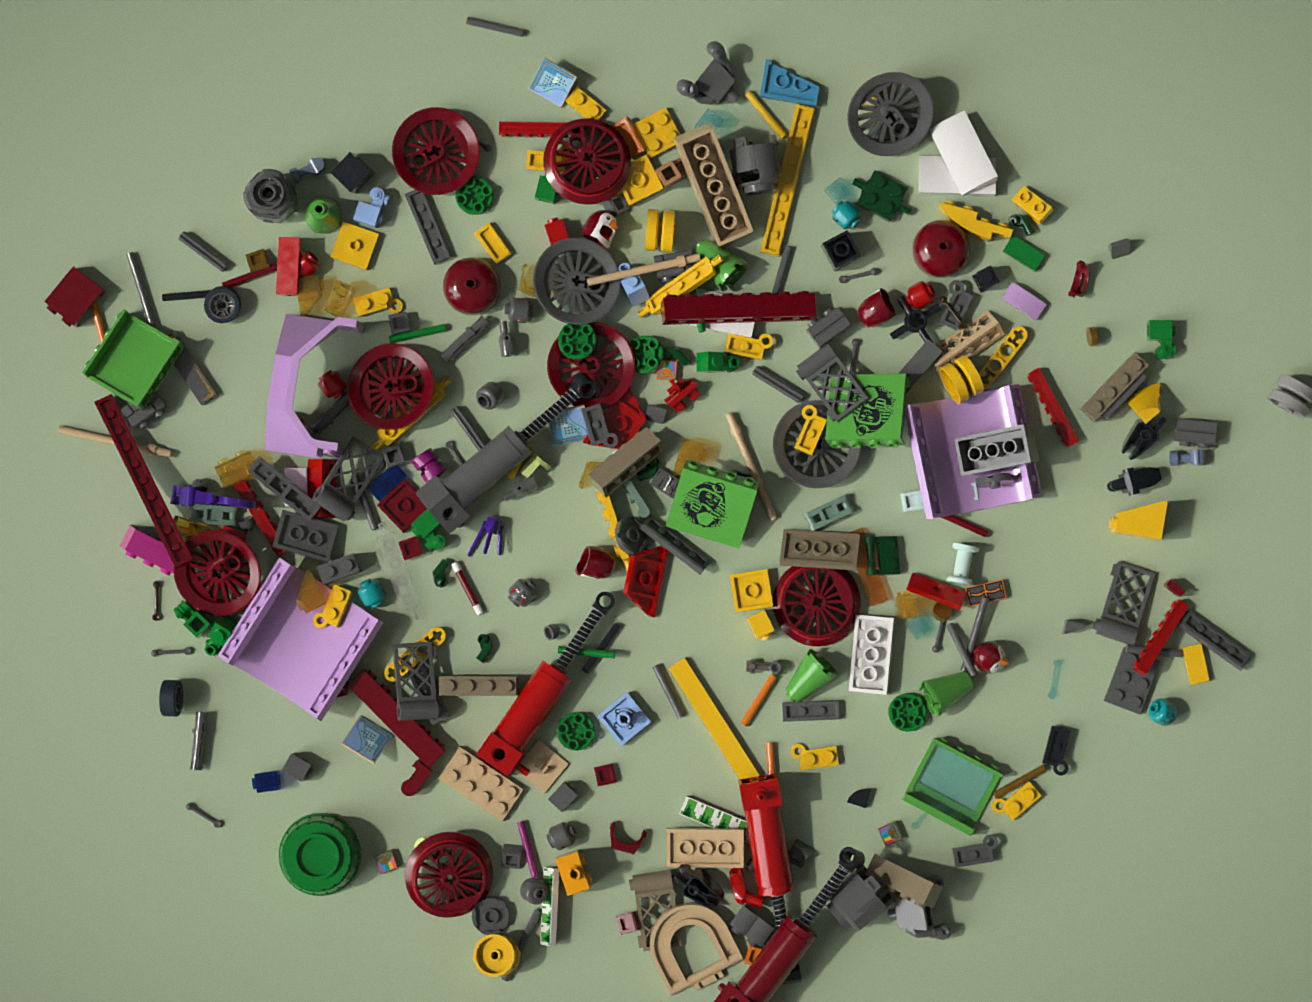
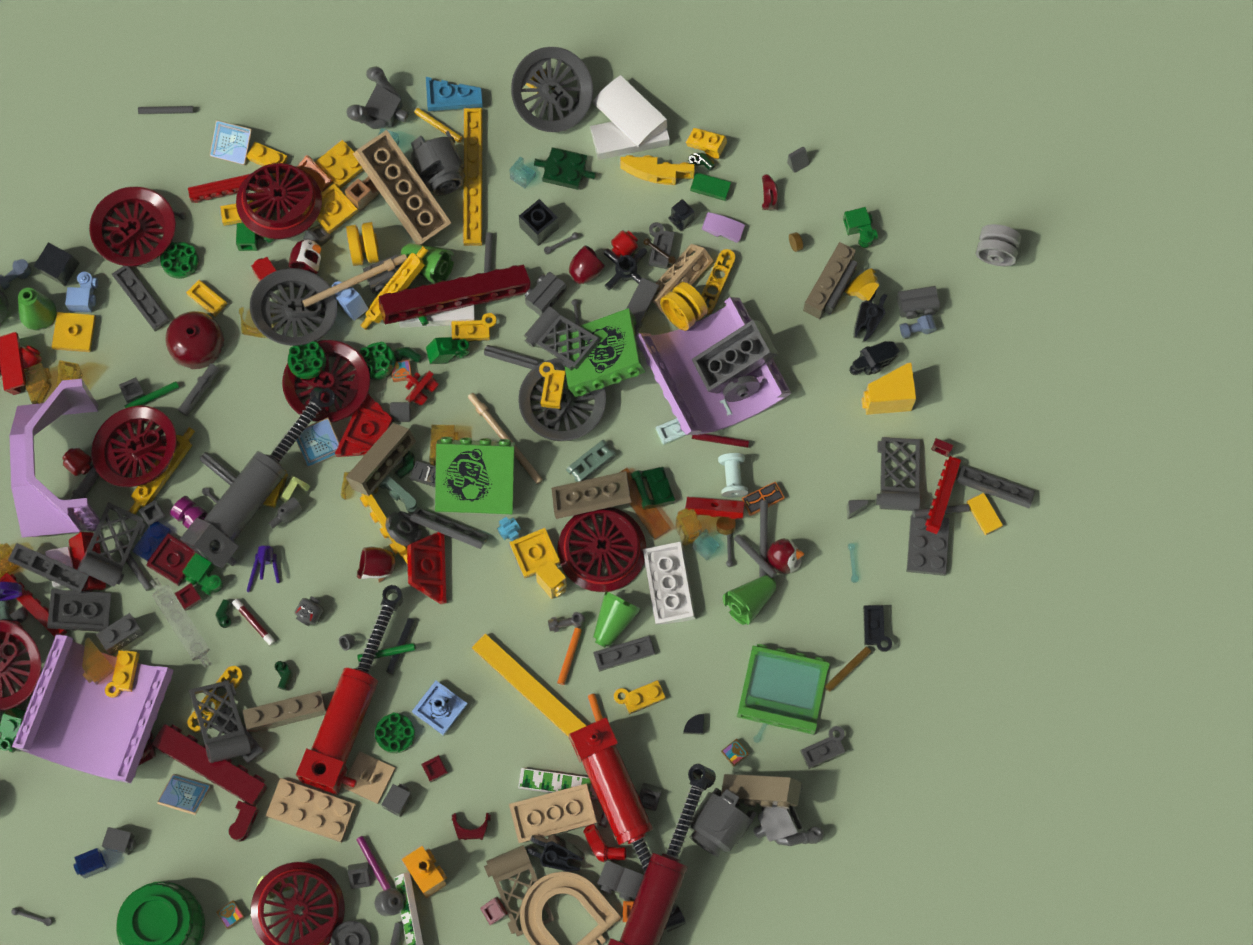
camera: 15 degrees left, 15 degrees down
(199, 740) = (11, 837): dark grey pin -> none
(371, 593) = (158, 649): teal head -> none
(376, 302) = (105, 378): yellow hinge -> none
(490, 395) = (234, 433): dark grey head -> none
(506, 341) = (239, 381): dark grey piece -> none
(519, 310) = (245, 350): dark grey head -> none
(561, 836) = (404, 840): dark grey head -> none
(596, 426) = (345, 434): dark grey hinge -> none
(668, 691) = (477, 670): dark grey bar -> none
(732, 561) = (508, 528): none -> medium azure gear
(846, 215) = (534, 190): teal head -> none
(907, 712) = (719, 630): green tile -> none
(932, 258) = (629, 207): dark red cylinder -> none
(1018, 801) = (852, 688): yellow hinge -> none
(1052, 407) = (777, 314): red piece -> none
(1162, 712) = (967, 564): teal head -> none

